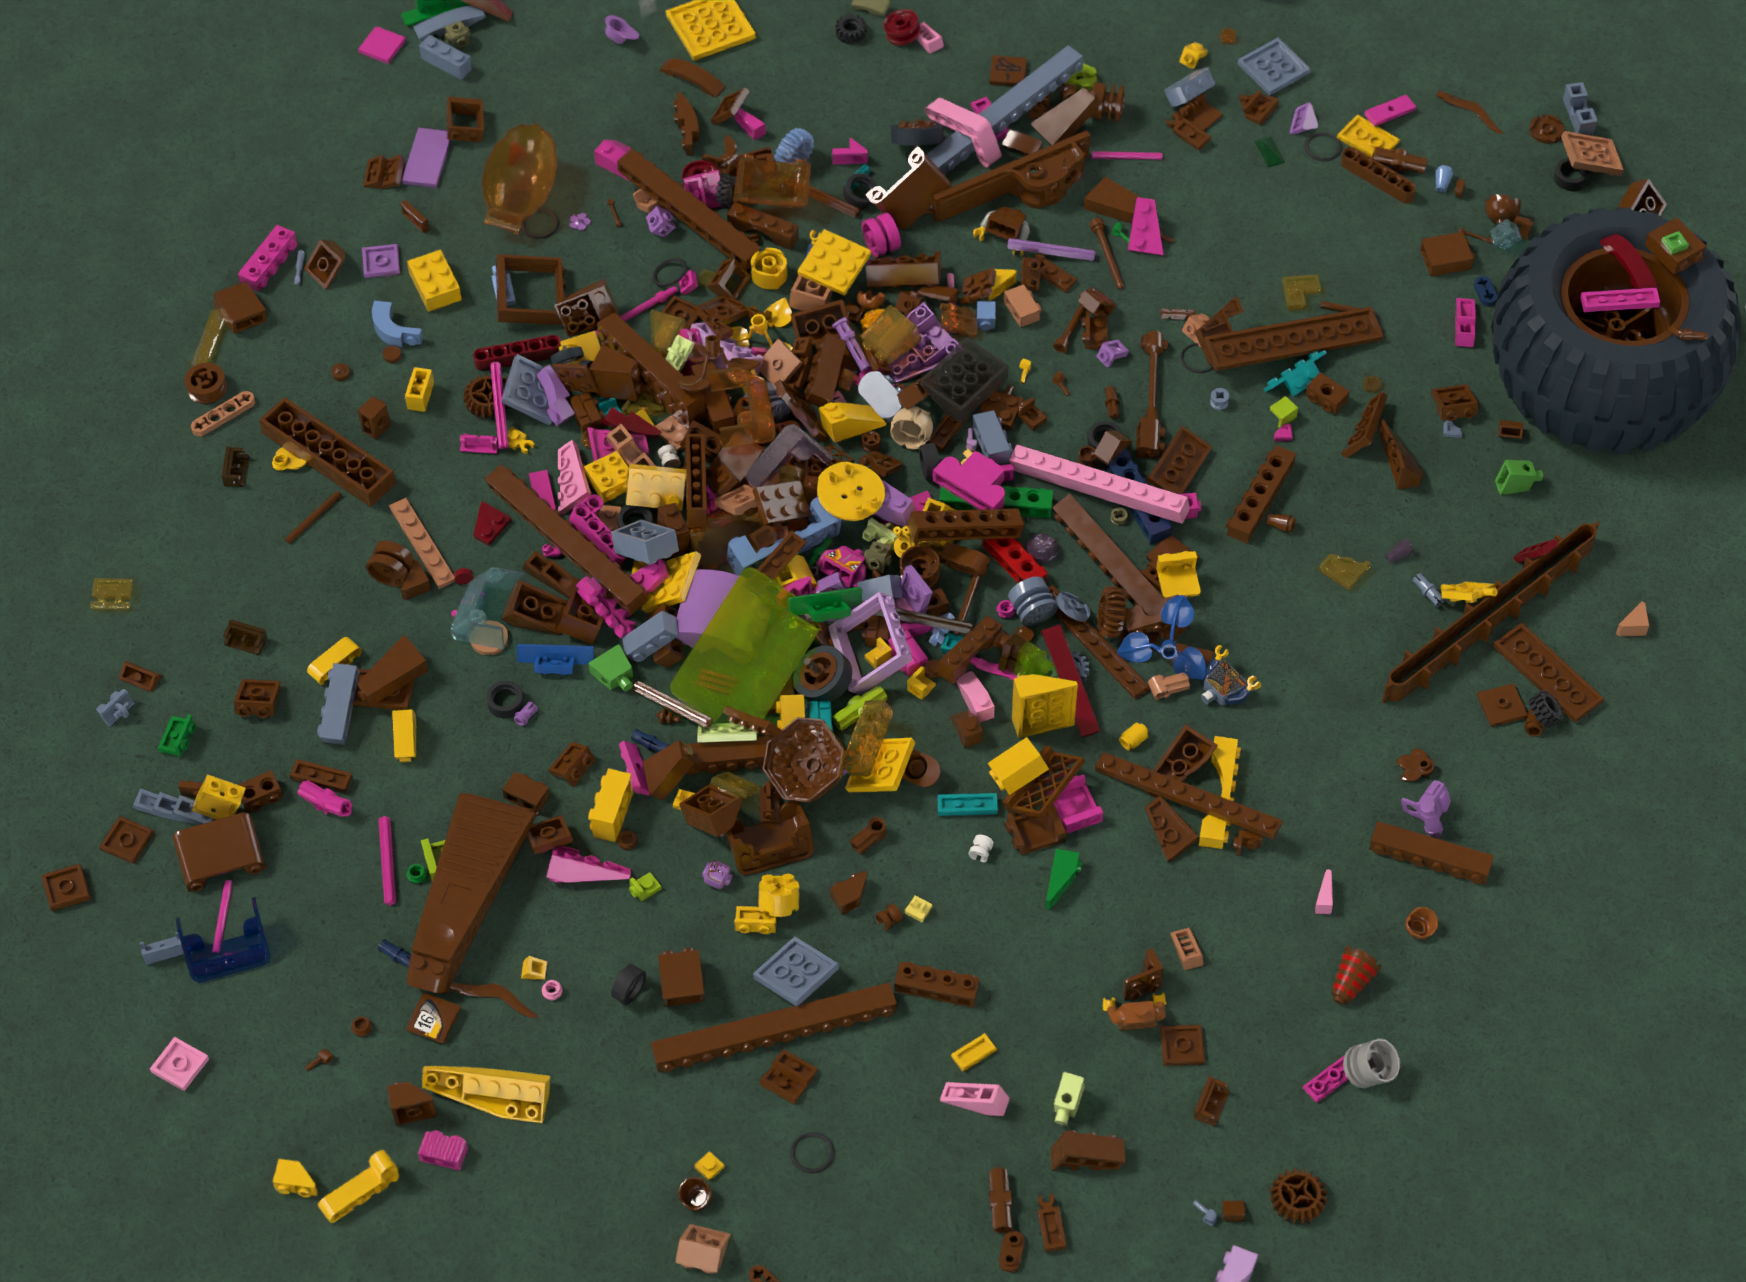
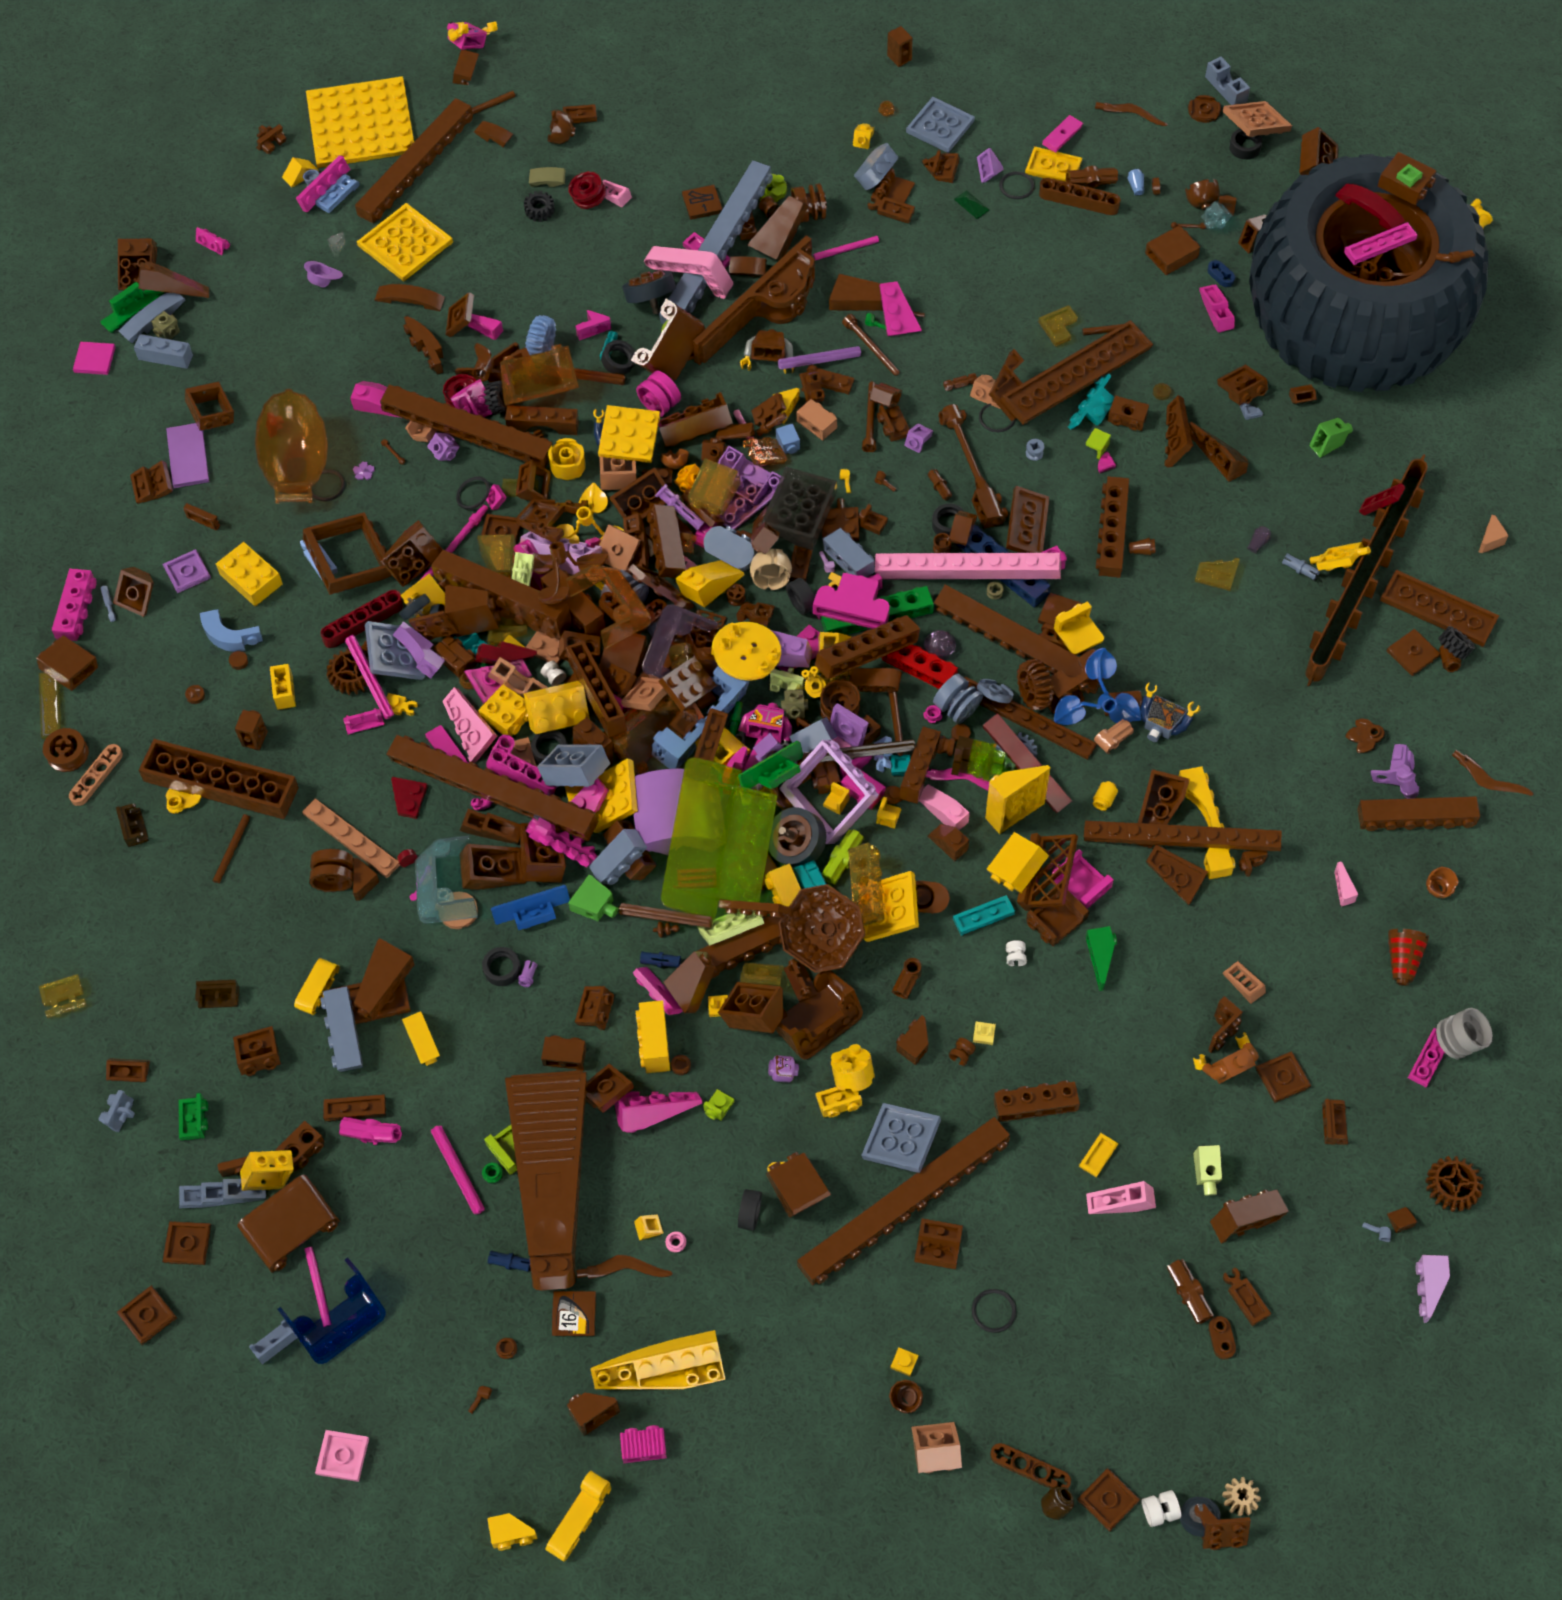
camera: 20 degrees left, 5 degrees up
(1514, 846) = (1484, 779): none -> reddish brown piece

